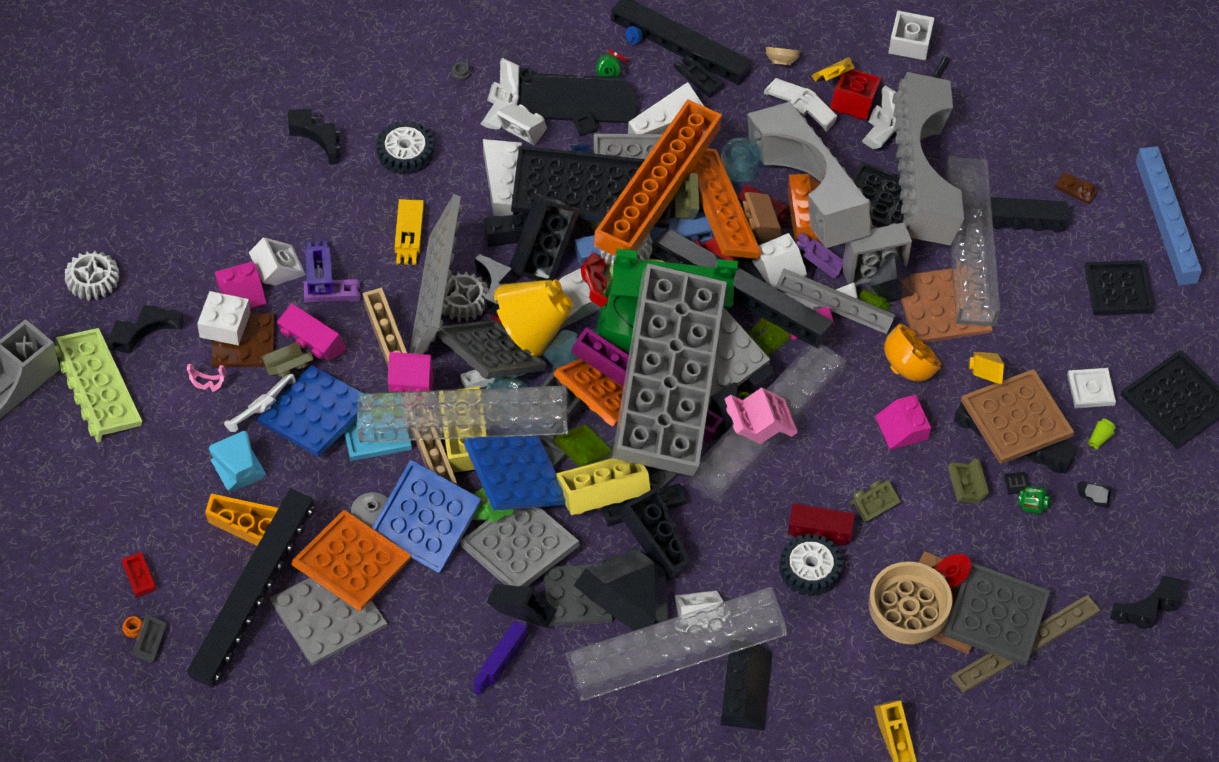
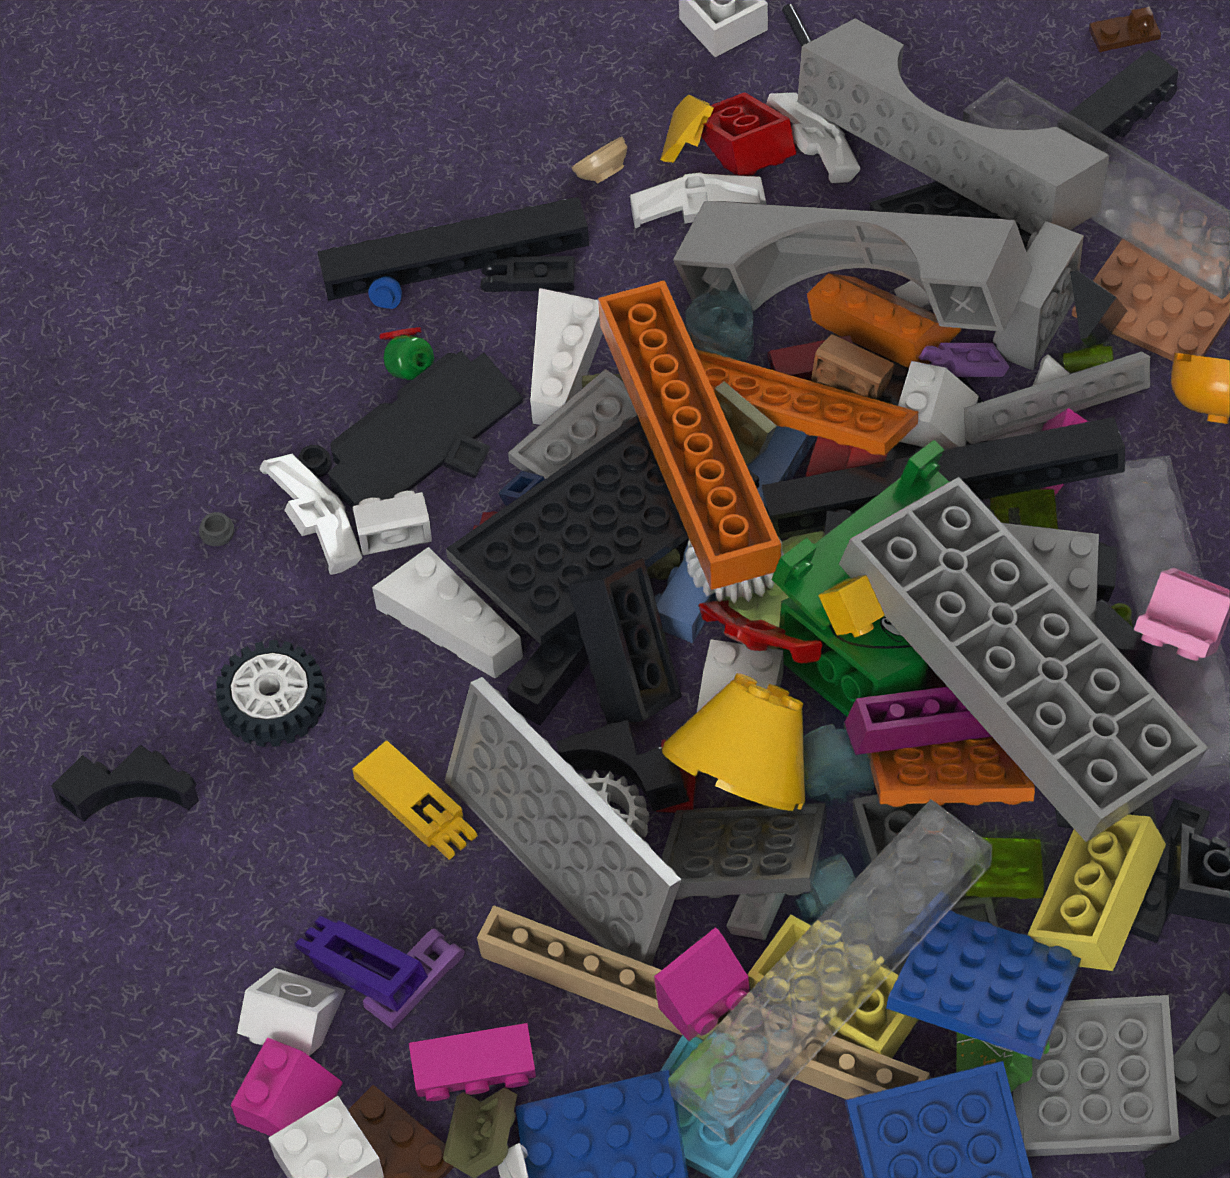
camera: 40 degrees left, 0 degrees up
(628, 294) = (852, 606): none -> yellow brick

